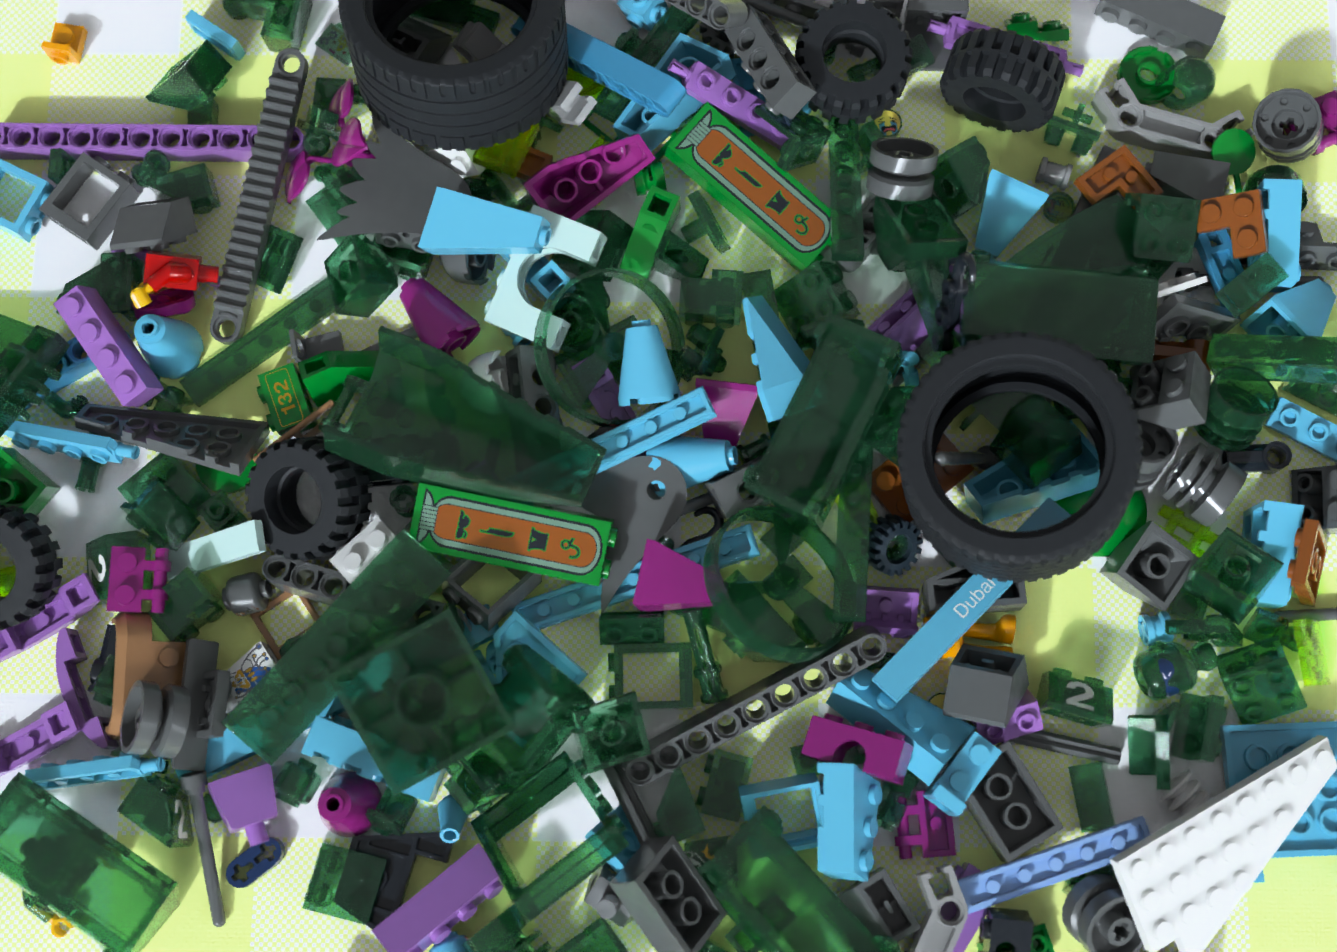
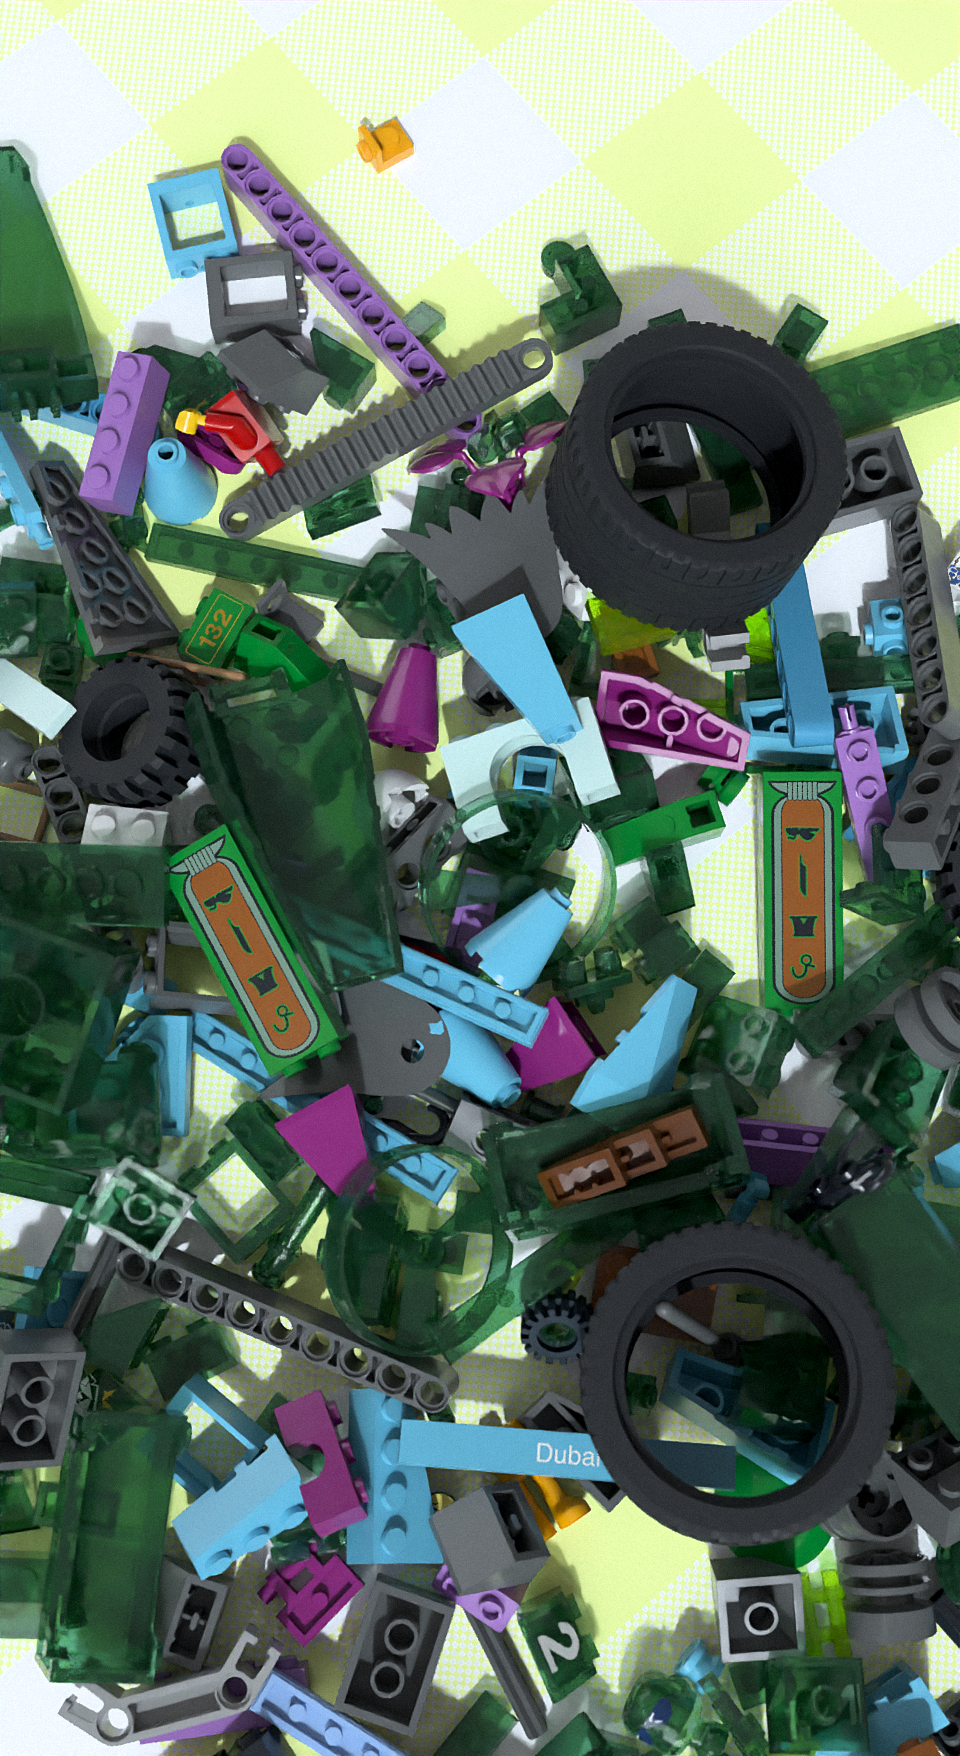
camera: 45 degrees right, 0 degrees up
(59, 164) = (263, 240): clear green plate -> none
(64, 408) = (43, 445): clear green arm -> none
(153, 164) = (332, 321): clear green bush -> none
(192, 79) = (444, 284): clear green slope -> none
(215, 35) = (507, 266): medium azure tile -> none
(704, 224) = (725, 873): clear green tile -> none
(827, 416) = (623, 1157): none -> reddish brown slope
(891, 610) = (493, 1380): medium lavender bracket -> none
(962, 775) = (381, 1590): medium azure bracket -> none

